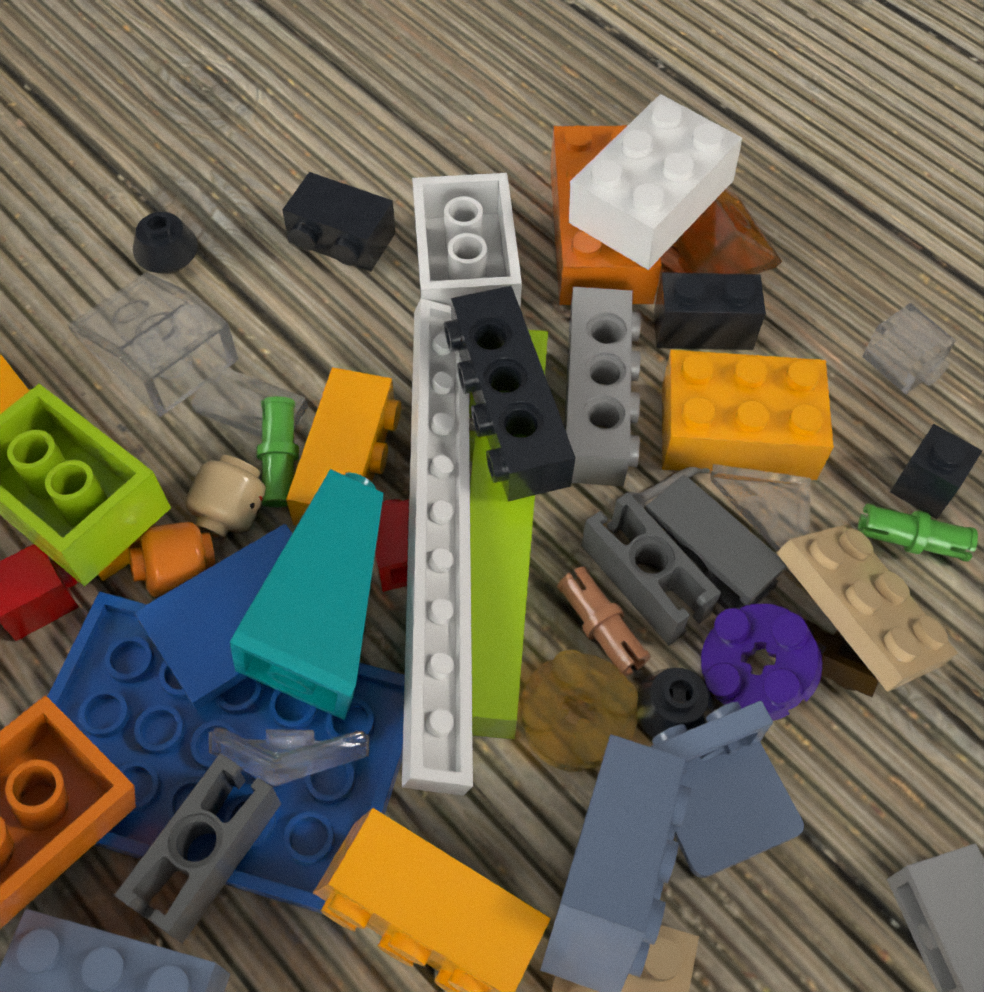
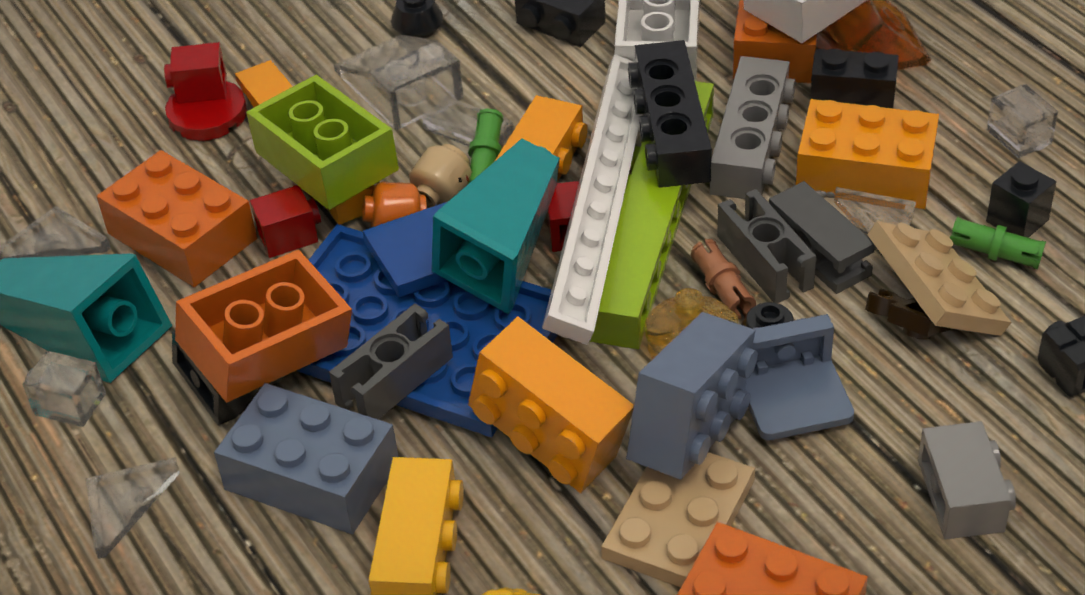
camera: 15 degrees right, 15 degrees down
(288, 753) = (468, 317): clear tile -> none
(750, 629) = (858, 290): dark purple plate -> none

